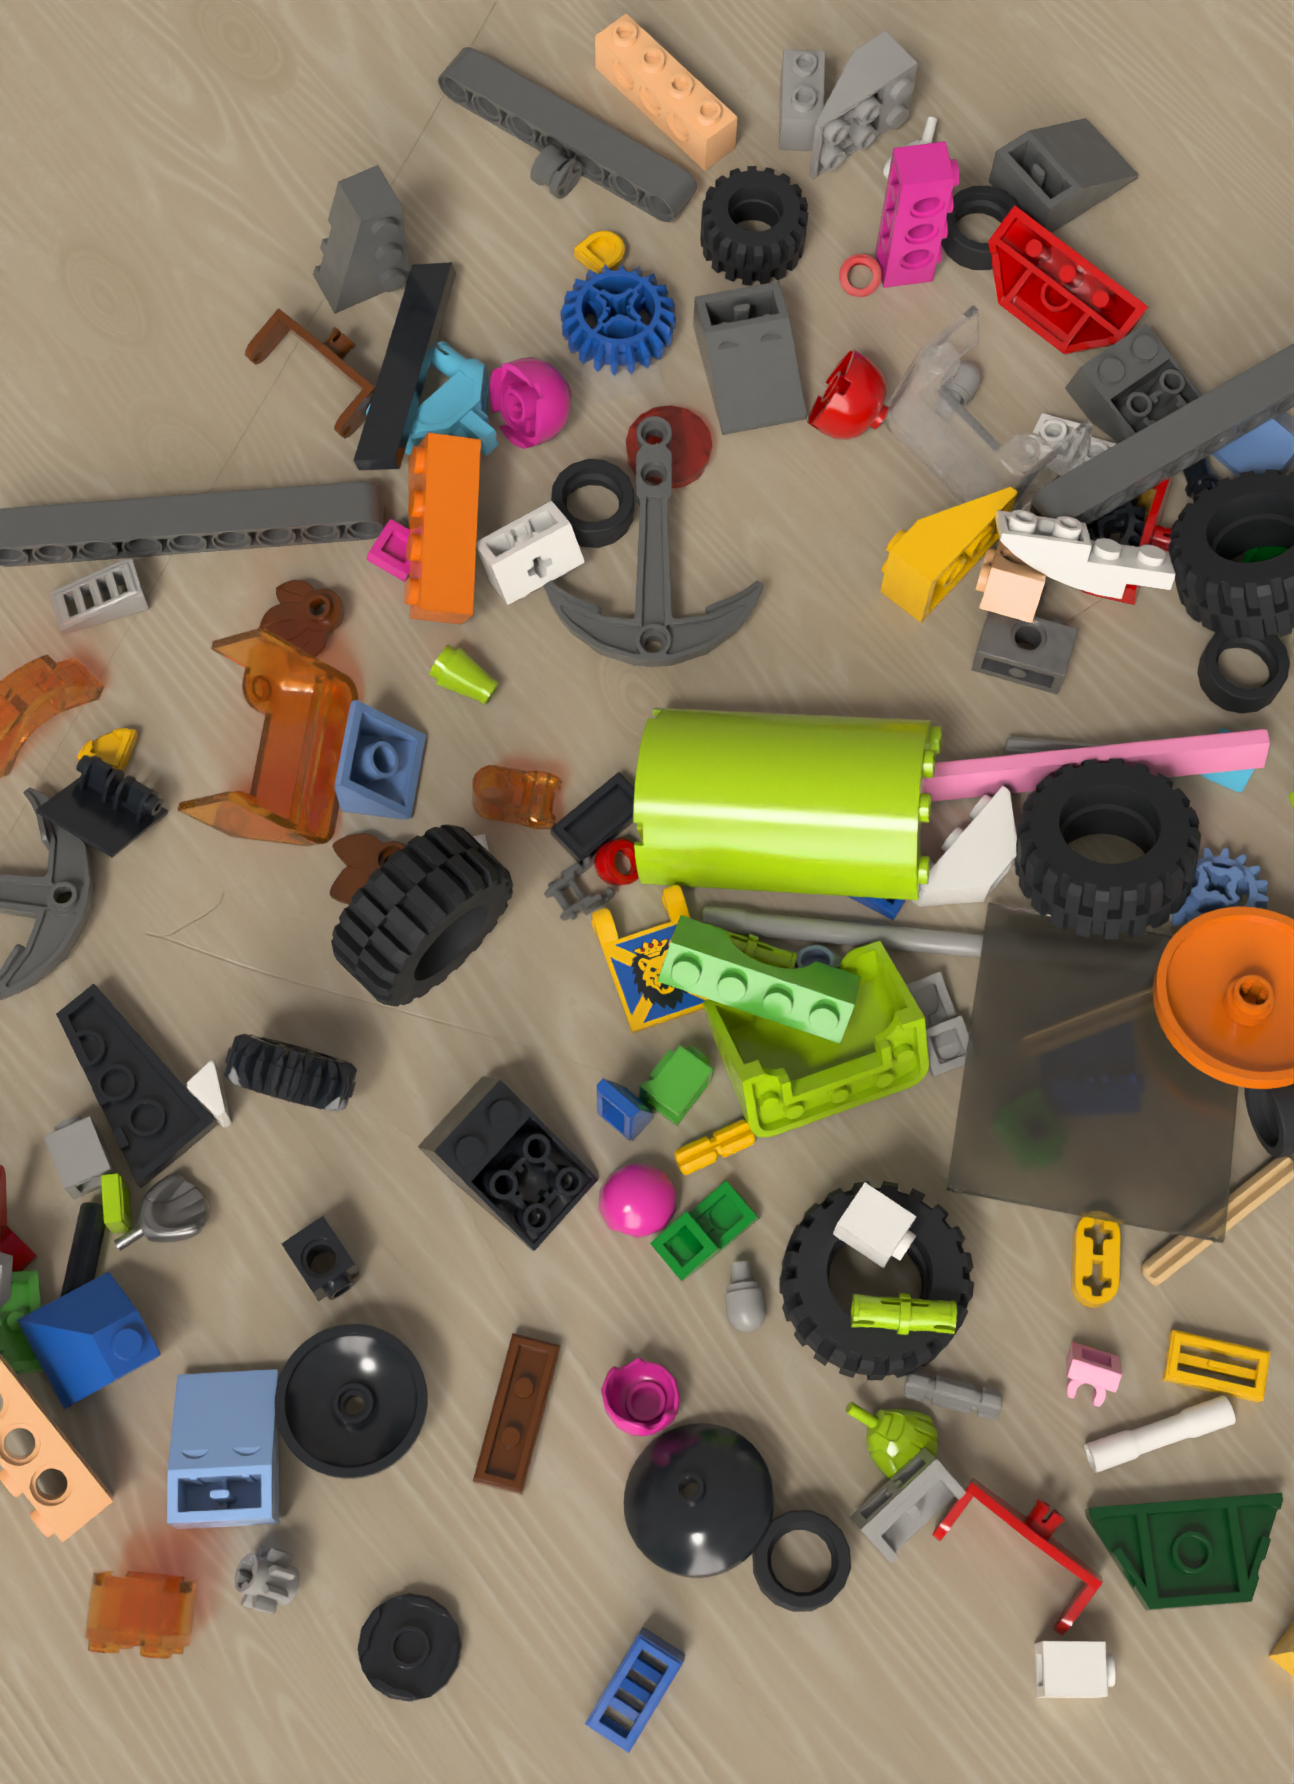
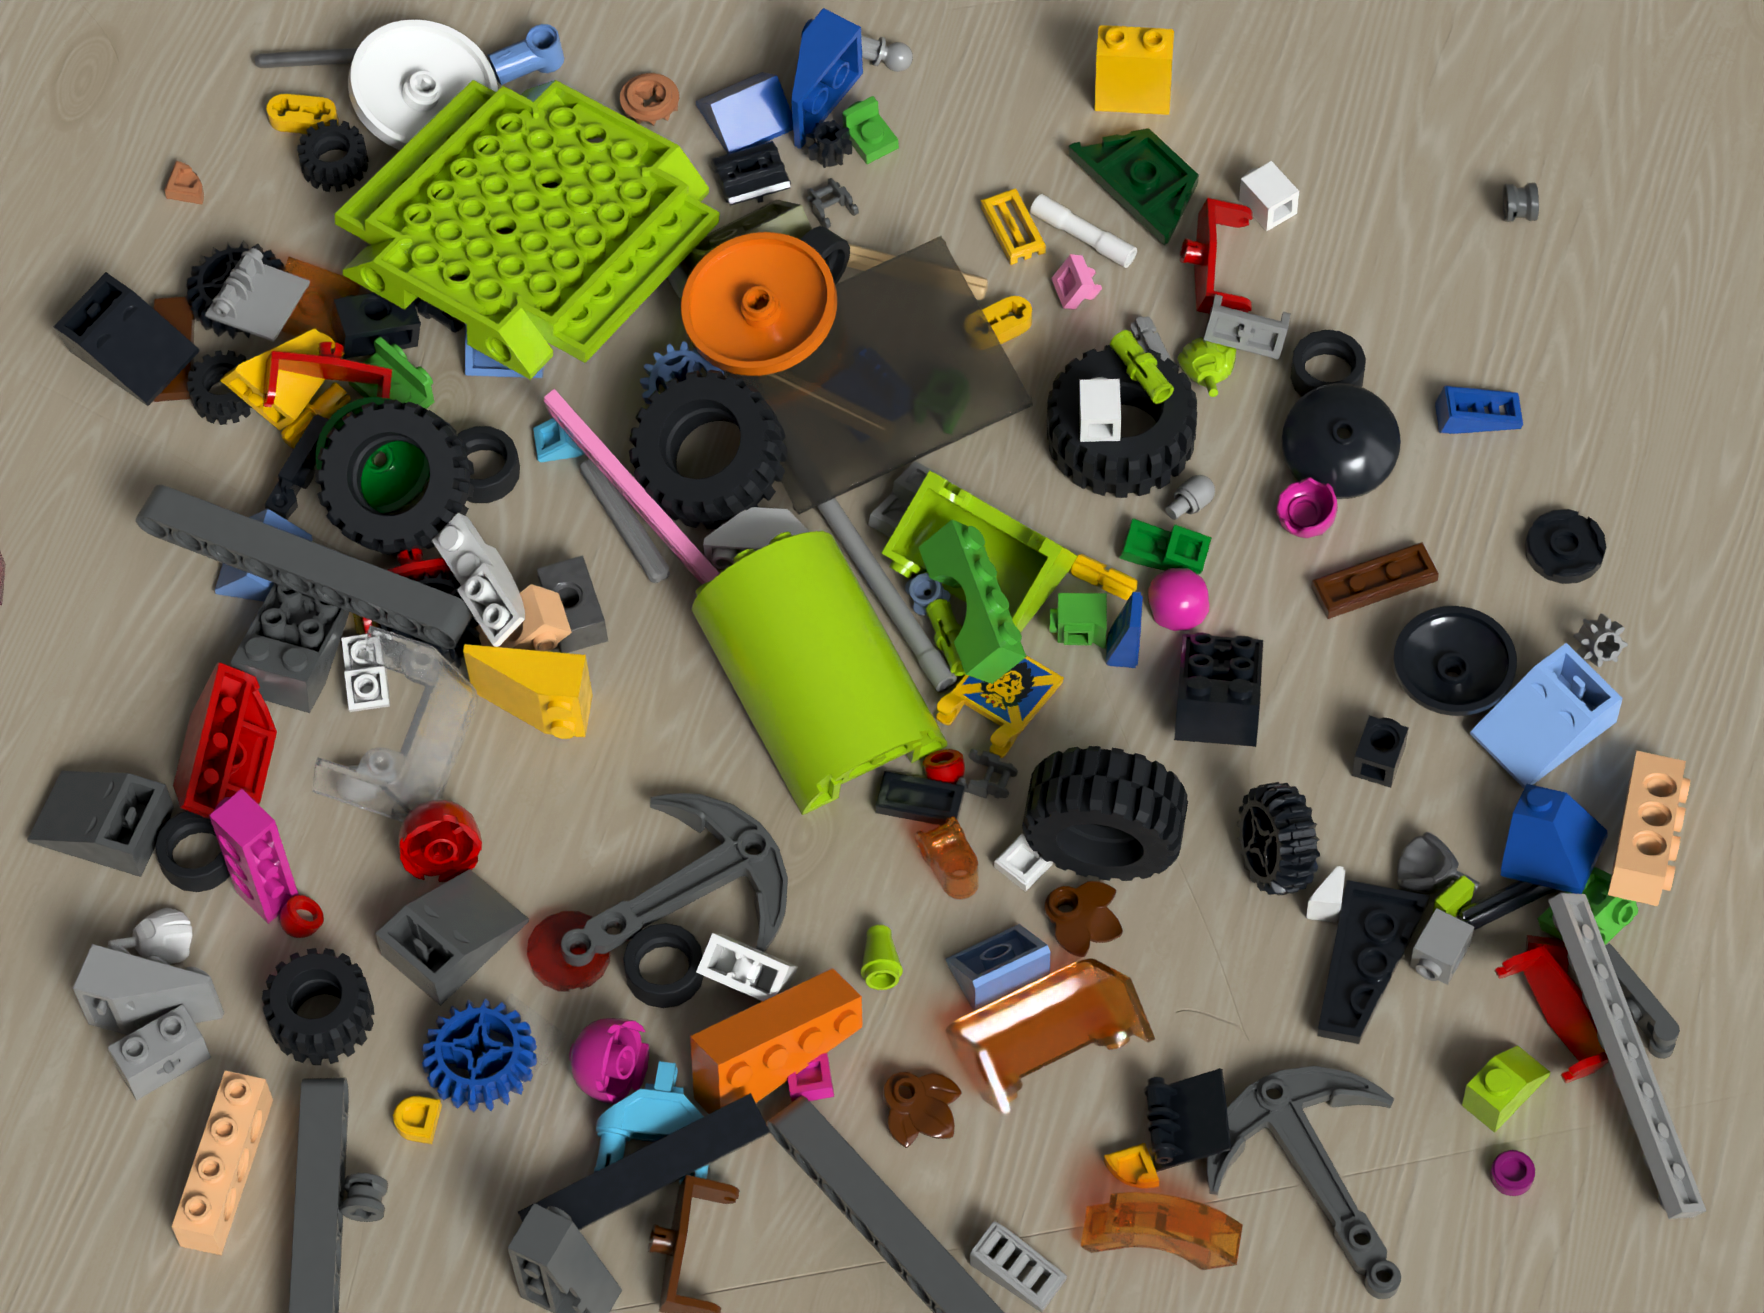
camera: 120 degrees left, 10 degrees down
(142, 1612) = (1683, 688): clear orange brick -> none

